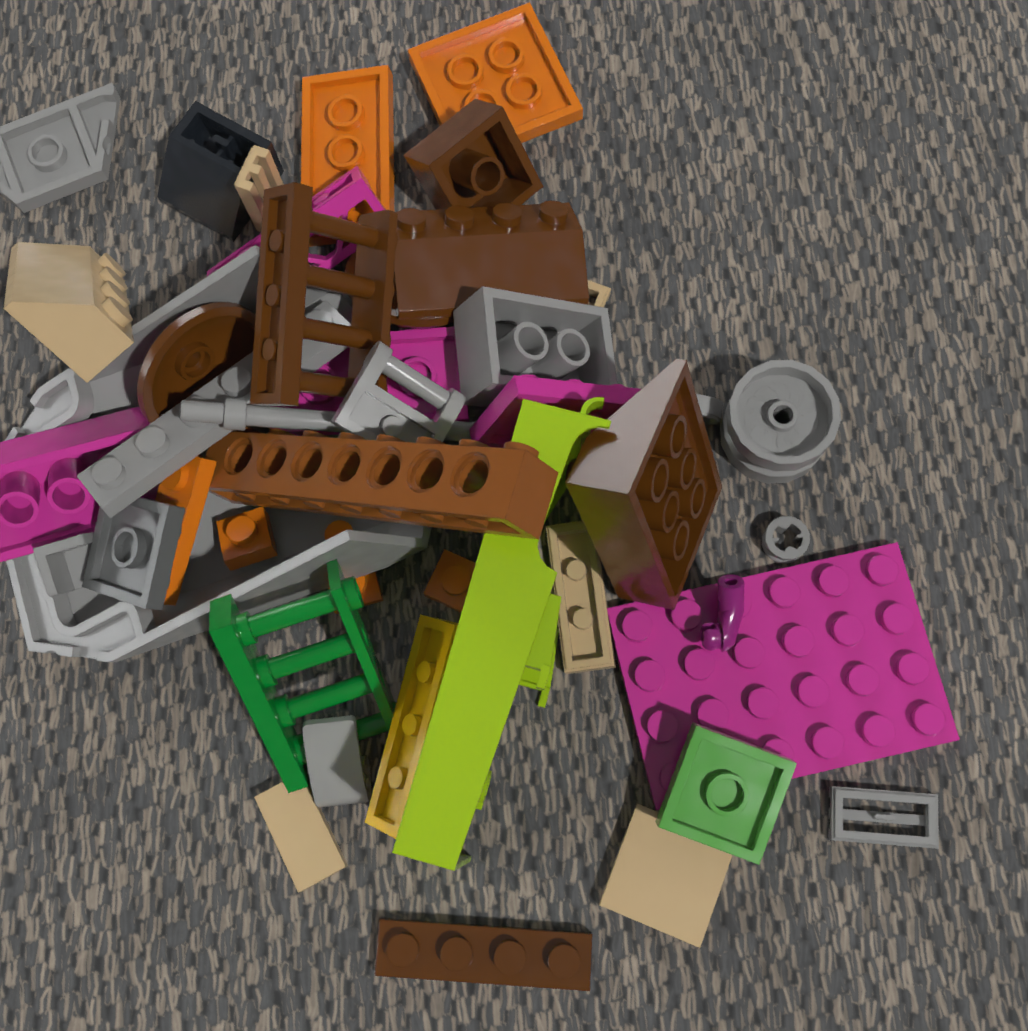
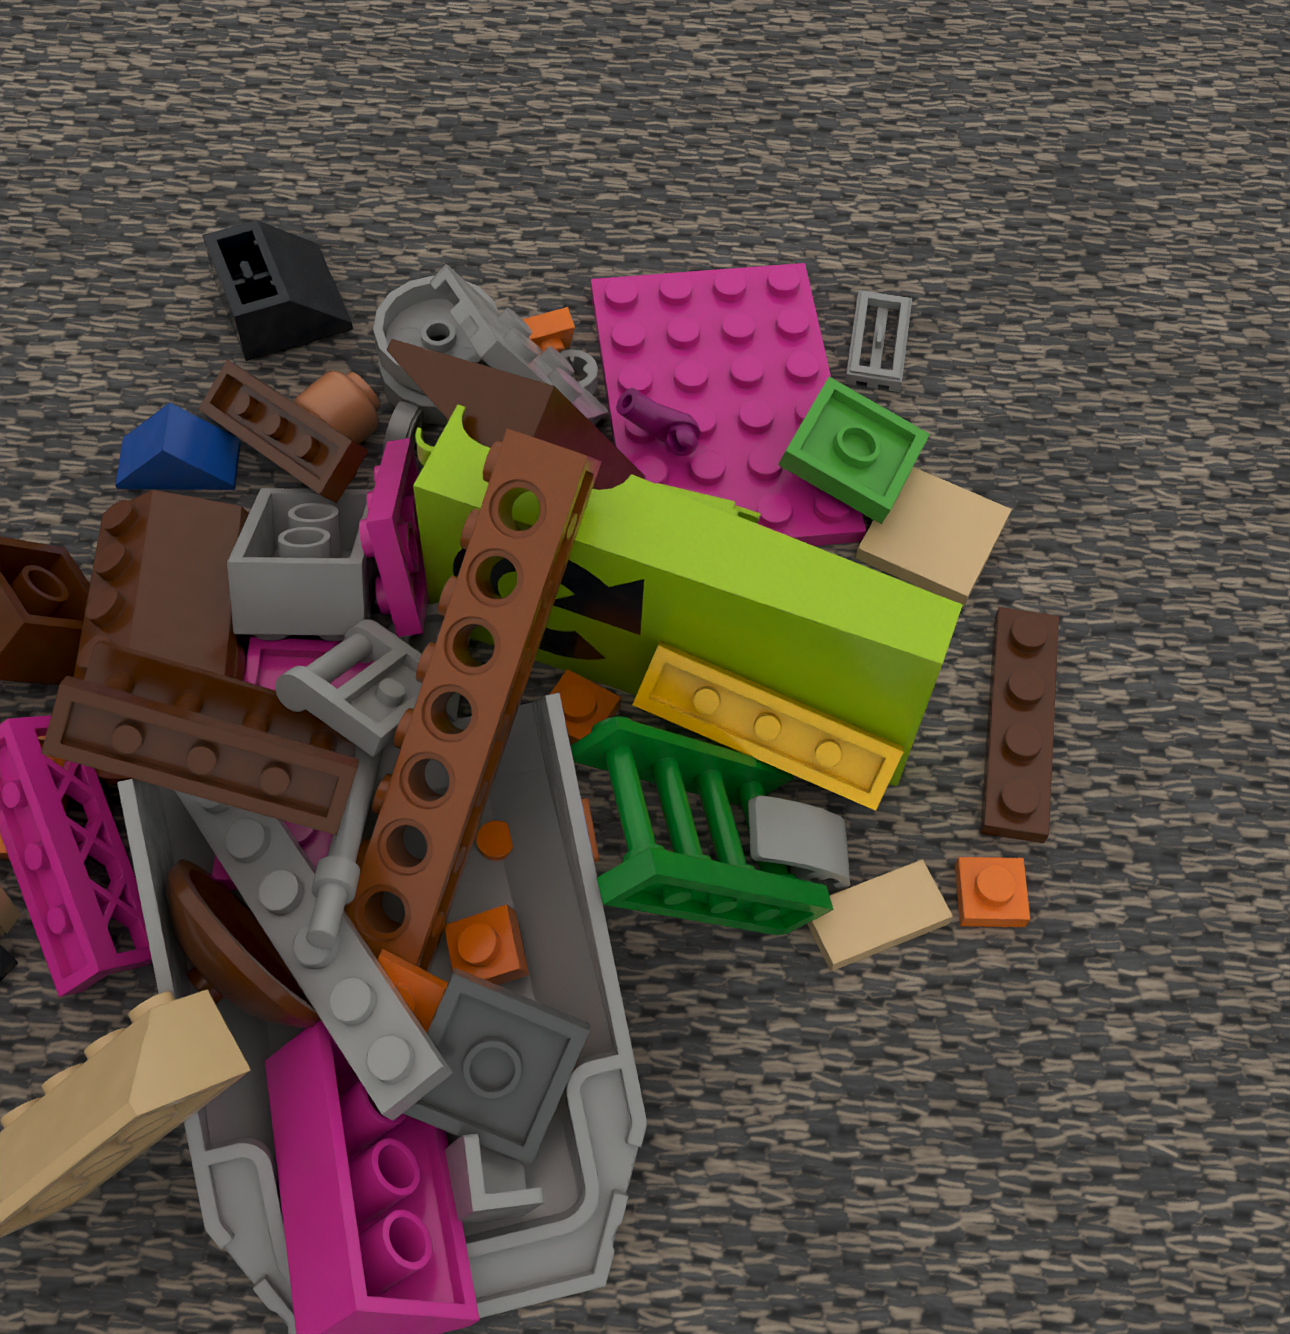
camera: 95 degrees left, 15 degrees down
(325, 926) = (992, 892): none -> orange plate
(650, 249) = (178, 454): none -> blue slope
(663, 313) = (283, 431): none -> reddish brown plate
(708, 351) = (343, 403): none -> nougat head
(744, 483) = (505, 344): none -> light grey wing
(815, 508) = (552, 329): none -> orange plate
(825, 280) = (274, 288): none -> black slope

